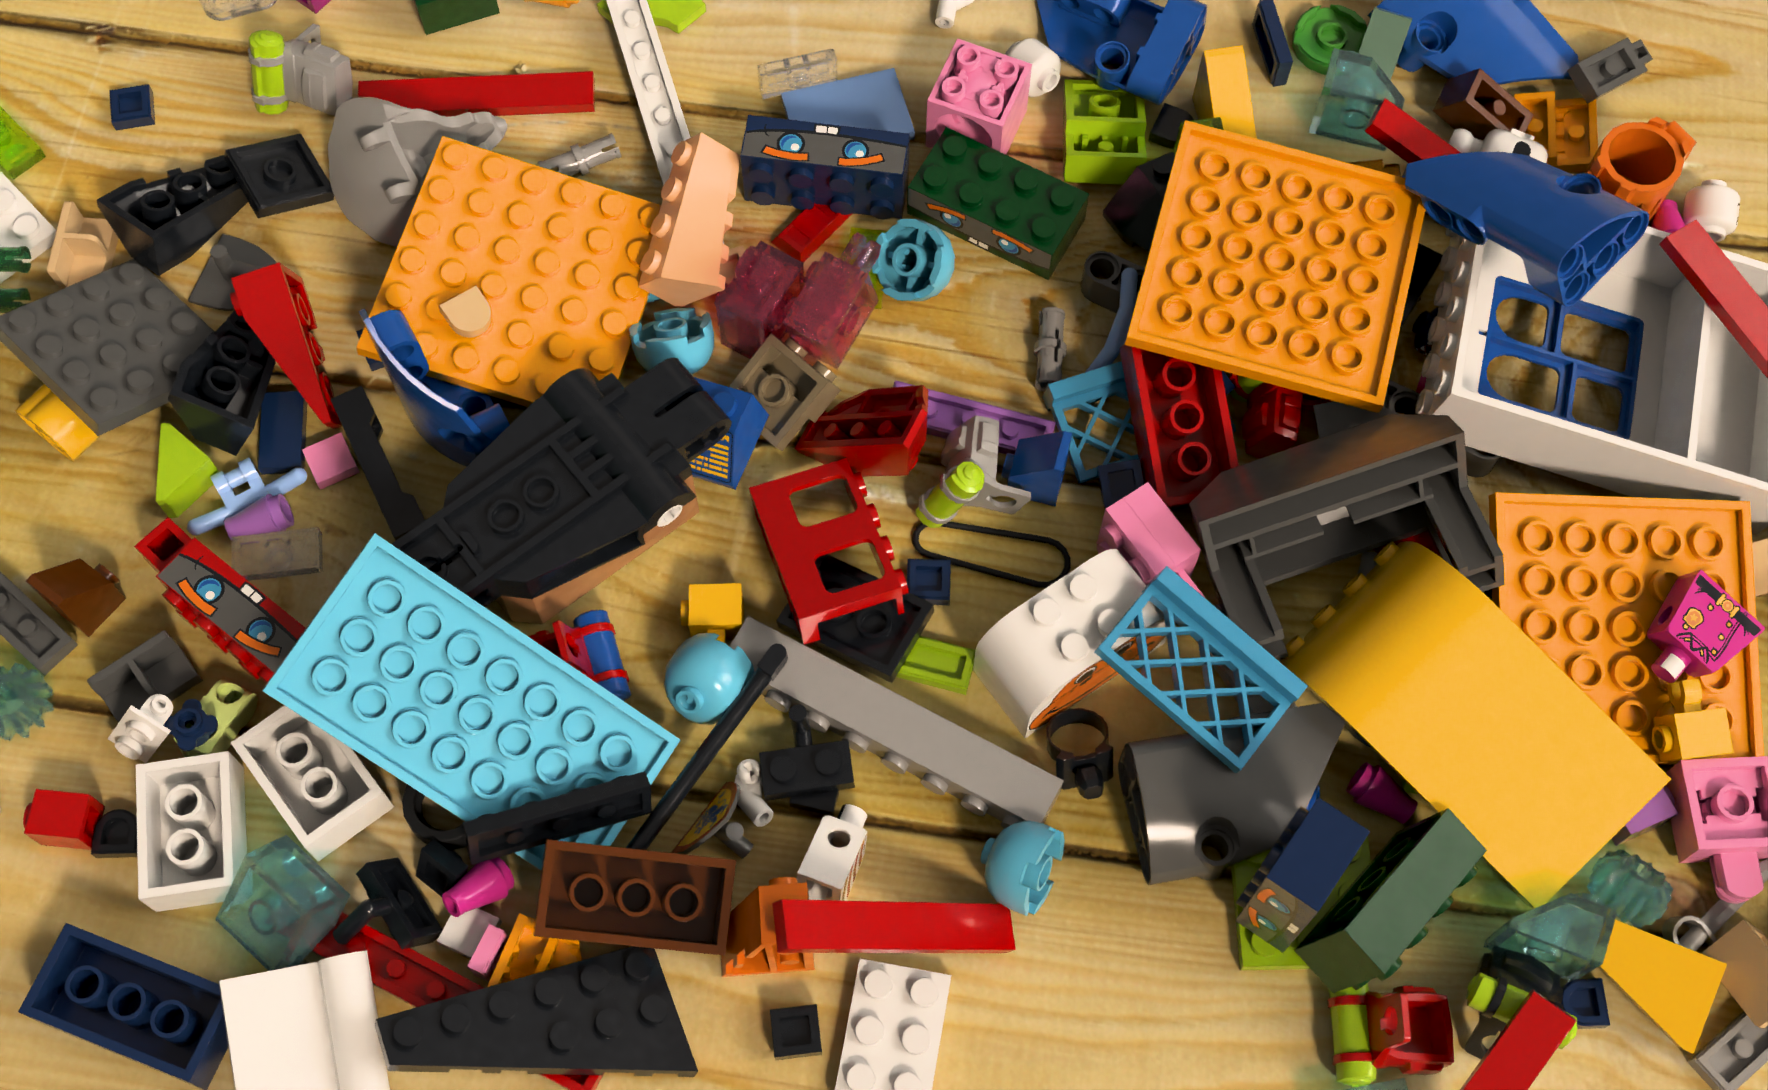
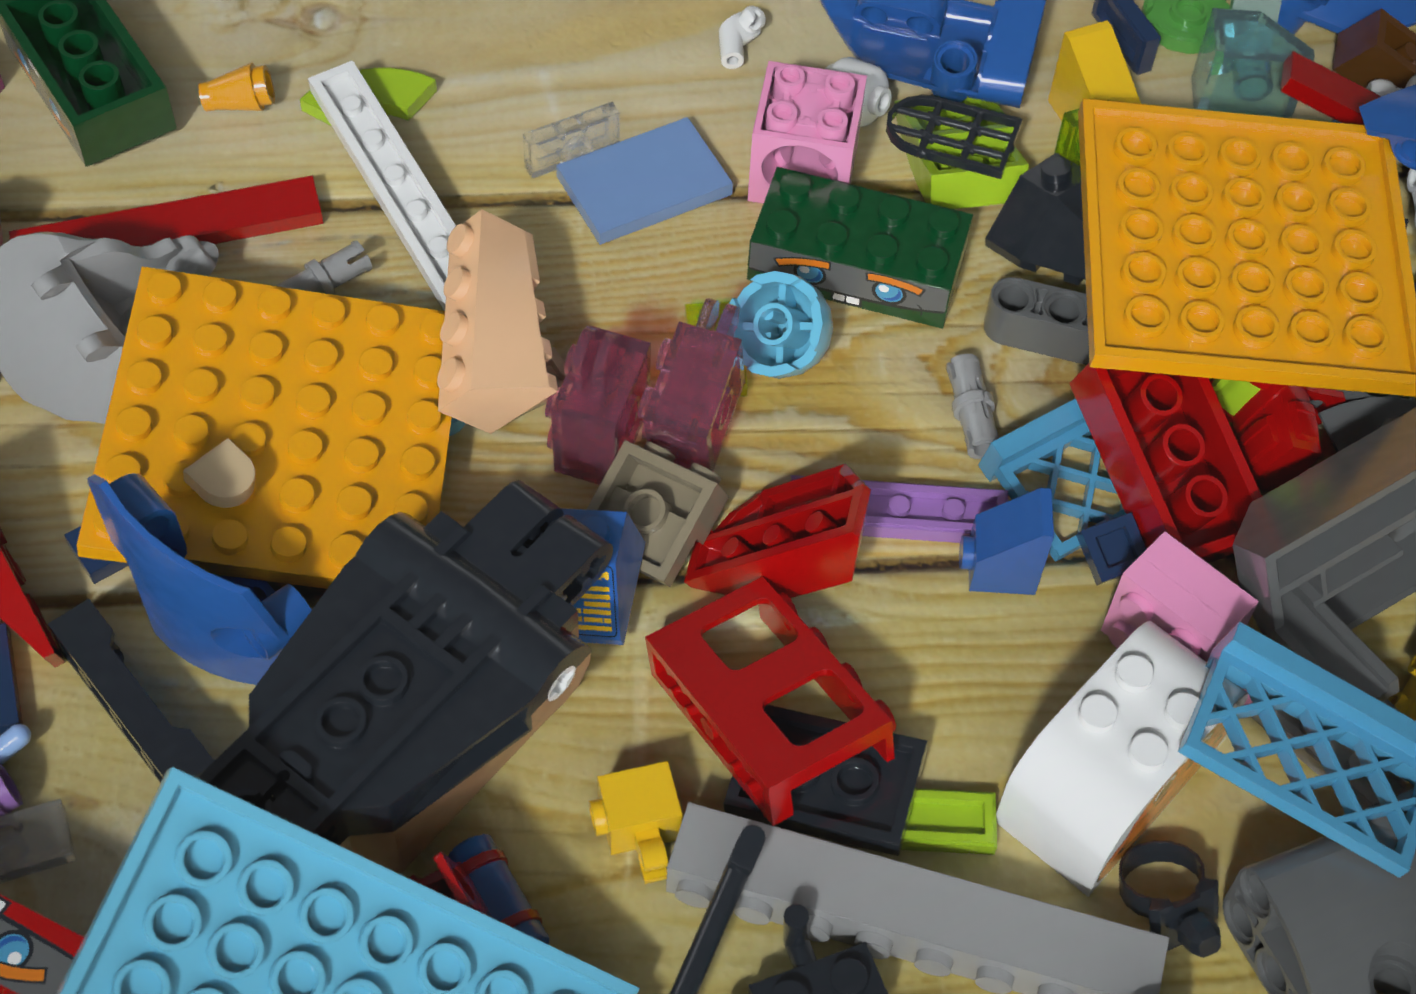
camera: 15 degrees left, 10 degrees down
(330, 461) = (59, 709): bright pink tile -> none
(674, 335) = (492, 464): medium azure cylinder -> none
(705, 678) = (654, 896): medium azure cylinder -> none
(809, 231) = (639, 305): red tile -> none
(825, 165) = (641, 235): dark blue brick -> none
(929, 580) = (912, 711): dark blue tile -> none
(969, 475) = (925, 570): light grey piece -> none
(1067, 560) = (971, 689): black piece -> none
(1101, 135) = (967, 146): none -> black window
(1122, 320) = (1064, 359): light blue piece -> none
(1167, 125) = (1037, 133): black tile -> none

